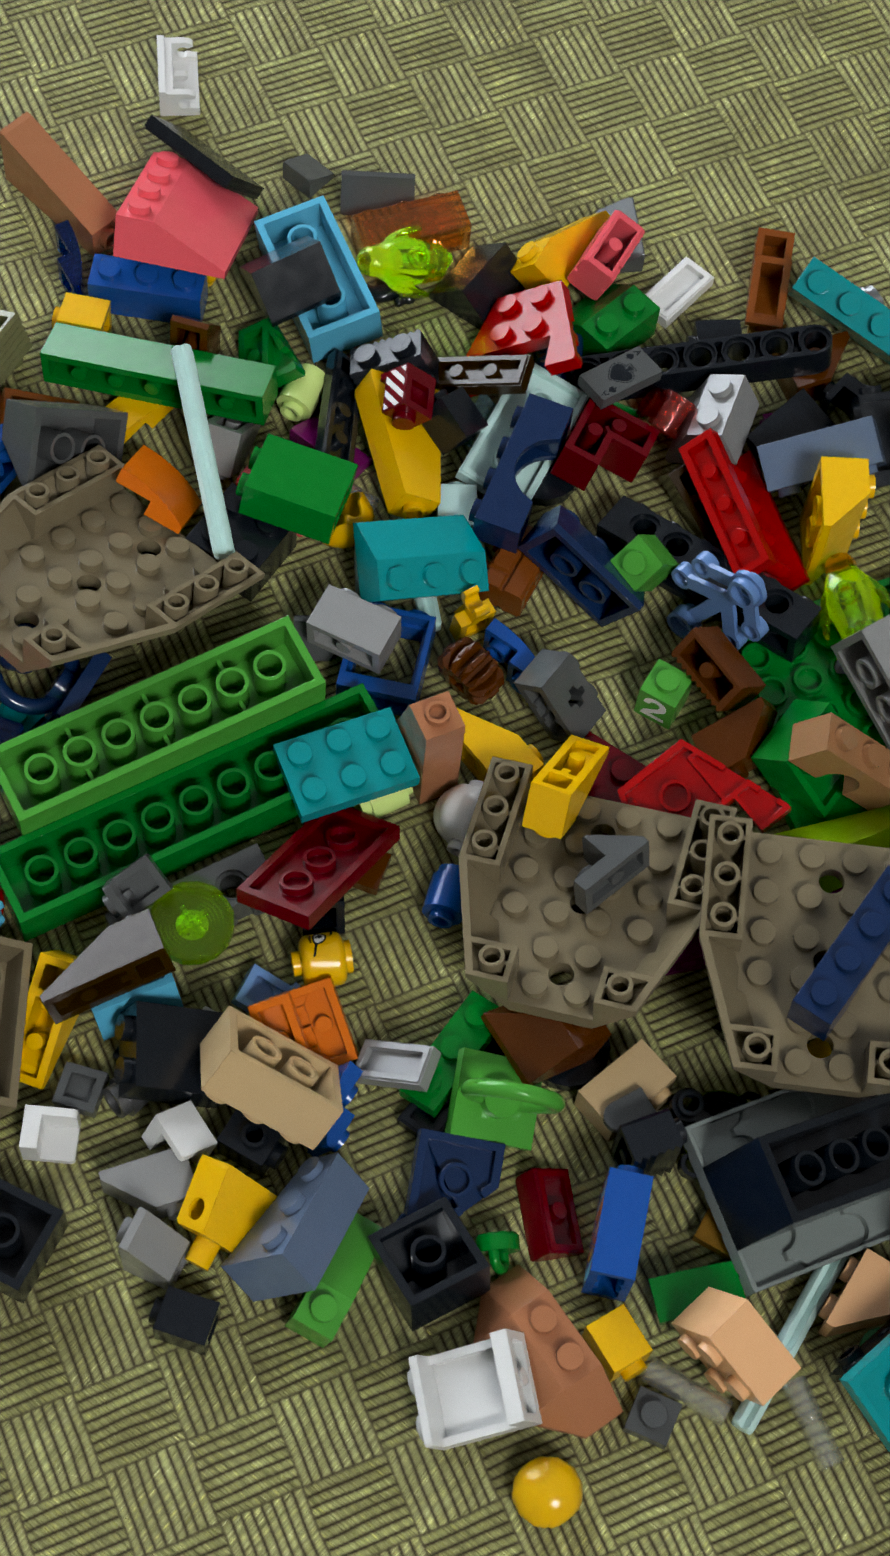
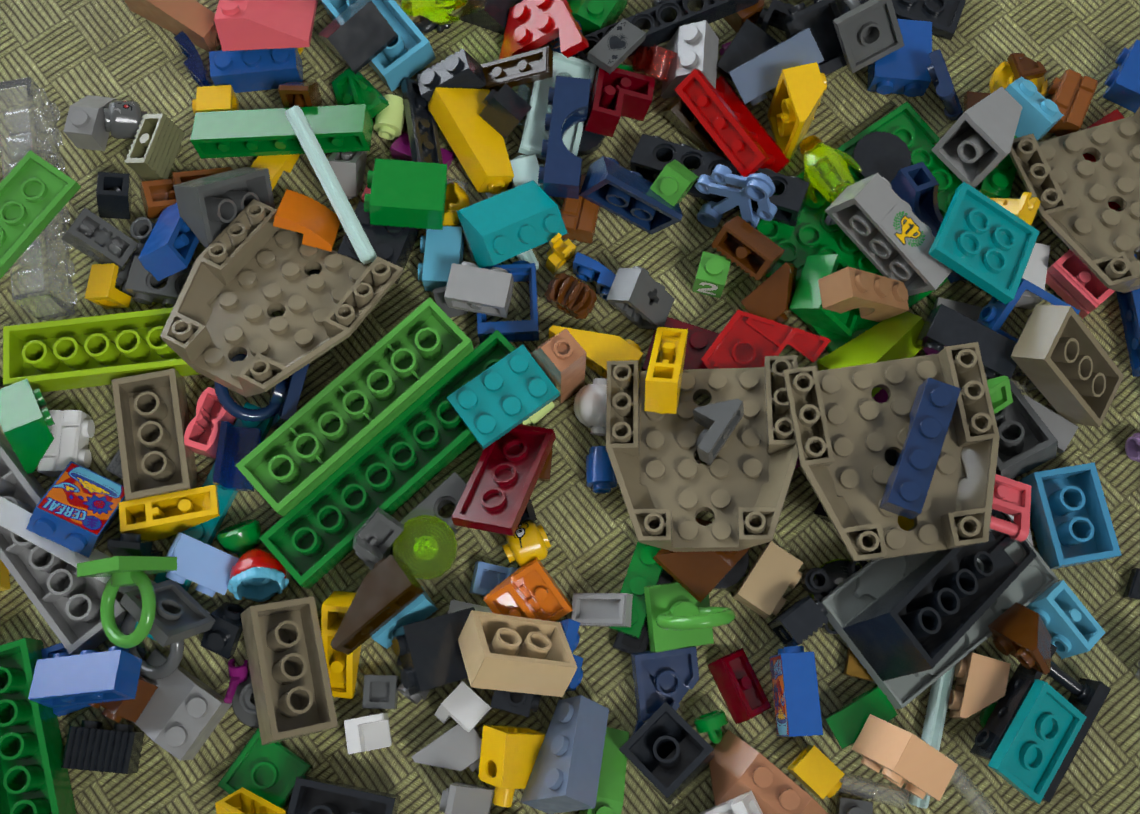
camera: 10 degrees left, 10 degrees up
(314, 570) = (440, 251): none -> medium azure brick
(408, 396) = (469, 102): dark red brick -> none
(627, 1109) = (777, 600): dark grey piece -> none

